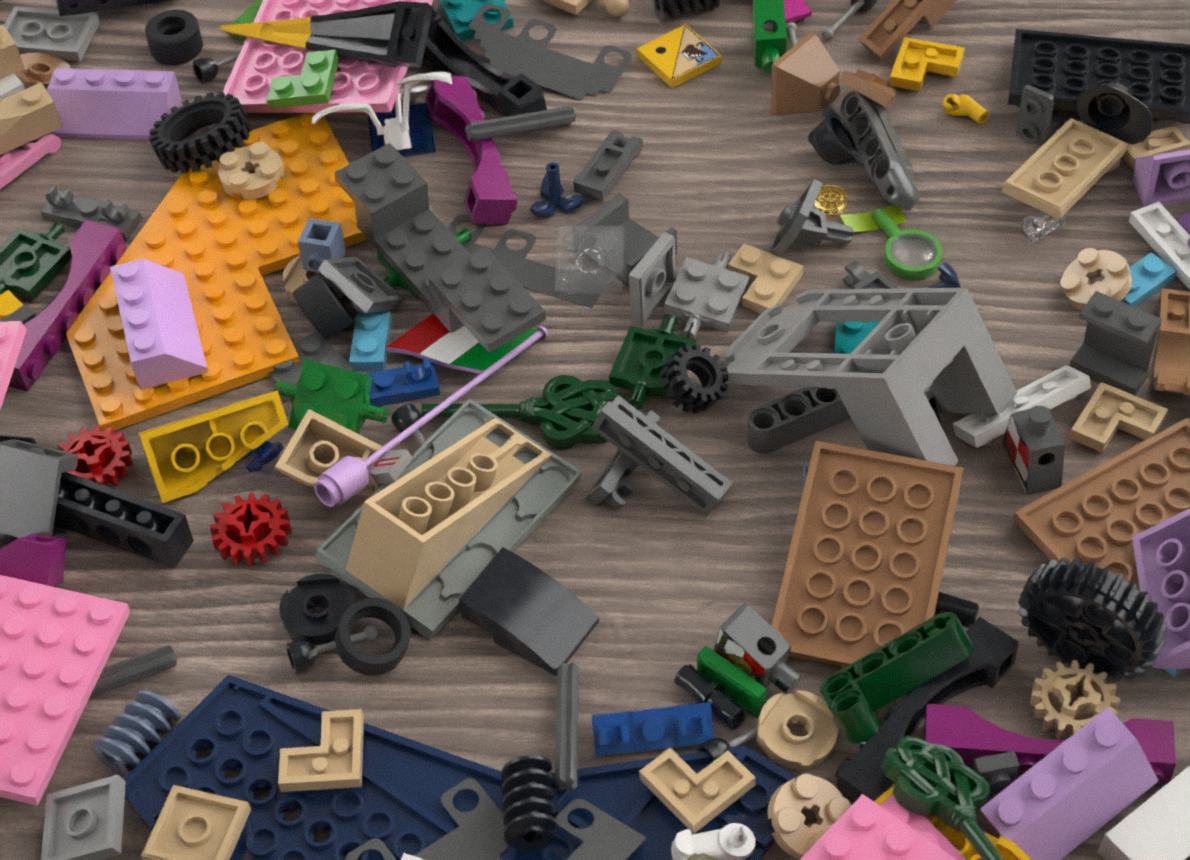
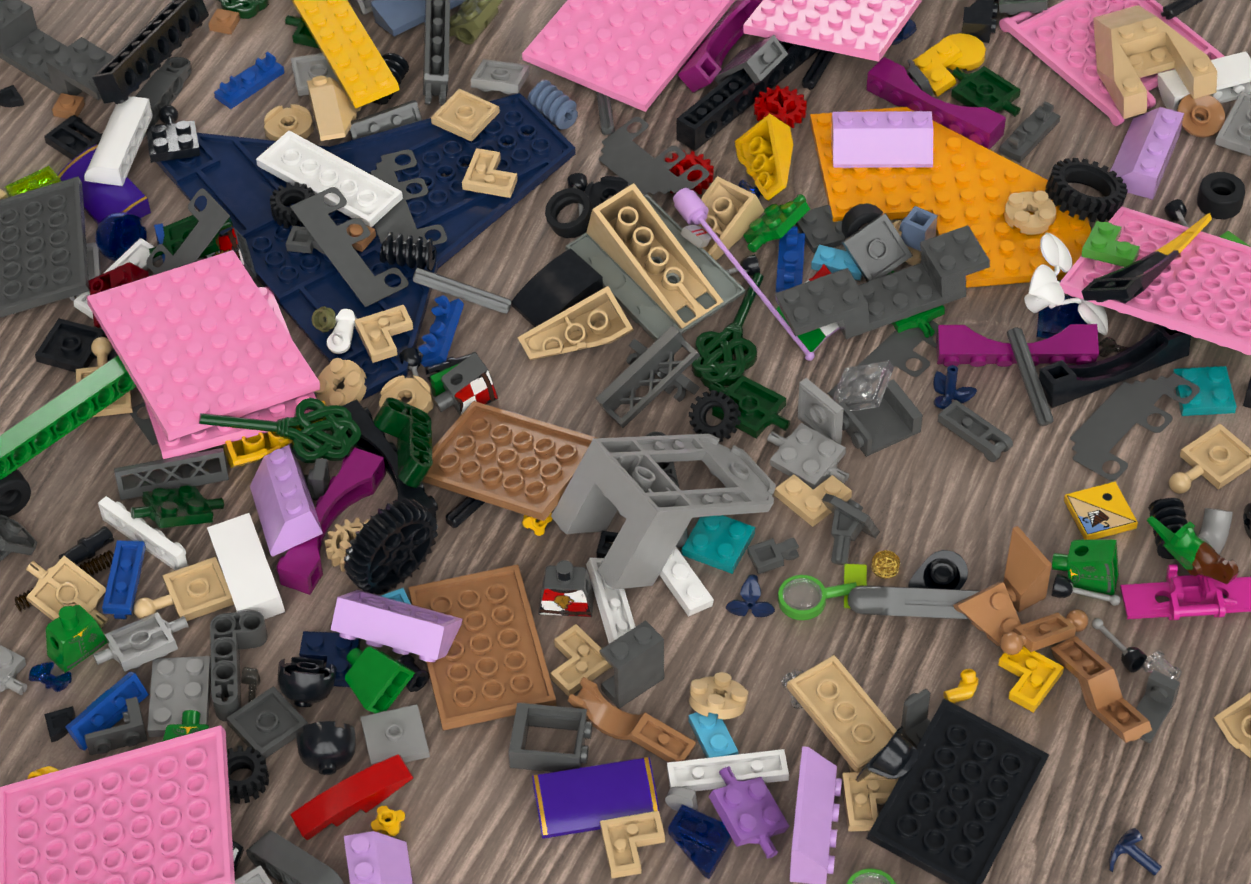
camera: 105 degrees right, 0 degrees up
(253, 587) = (639, 167): none -> dark grey piece
(579, 554) = (584, 325): none -> tan wedge
(870, 57) = (1044, 632): none -> medium nougat plate

